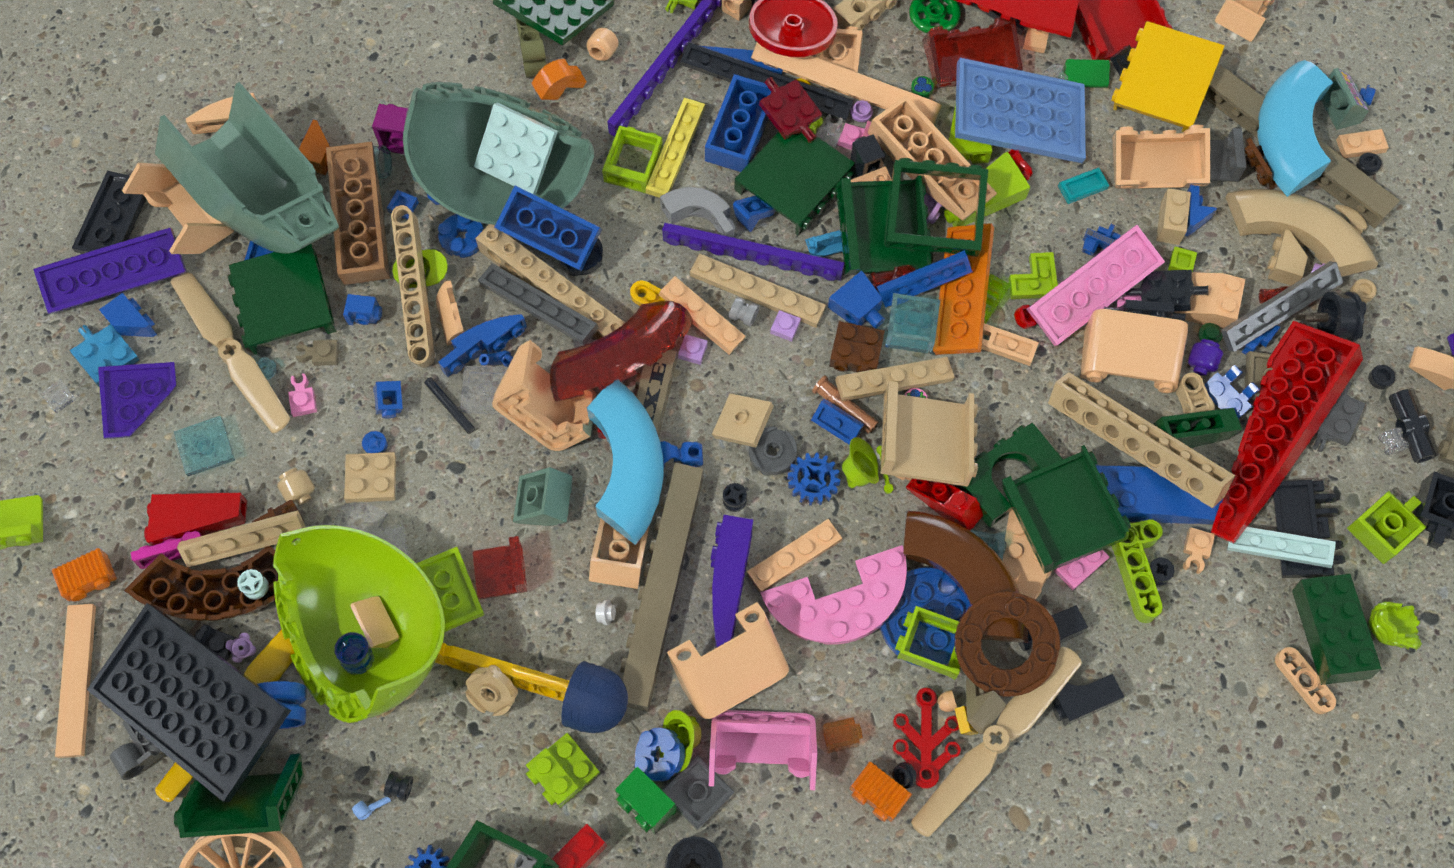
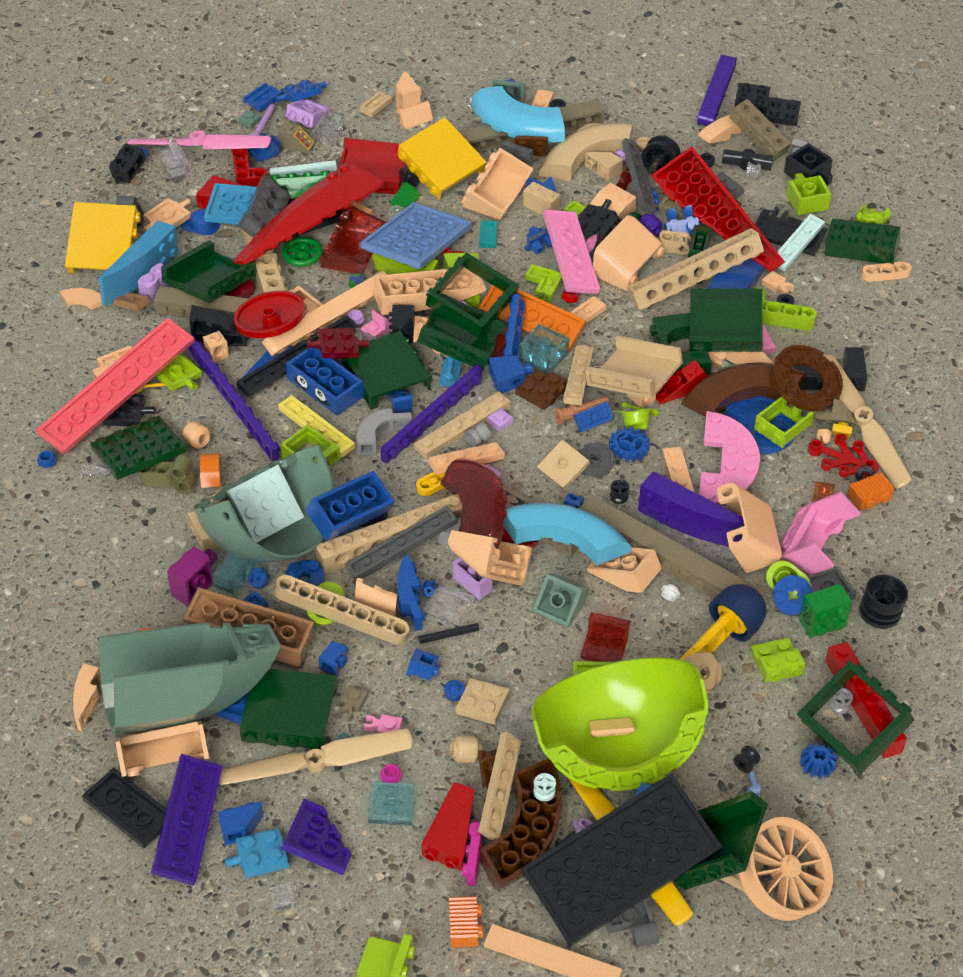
camera: 65 degrees left, 20 degrees down
(241, 429) = (390, 774): none -> dark pink plate
(354, 653) = (632, 744): wheel -> none

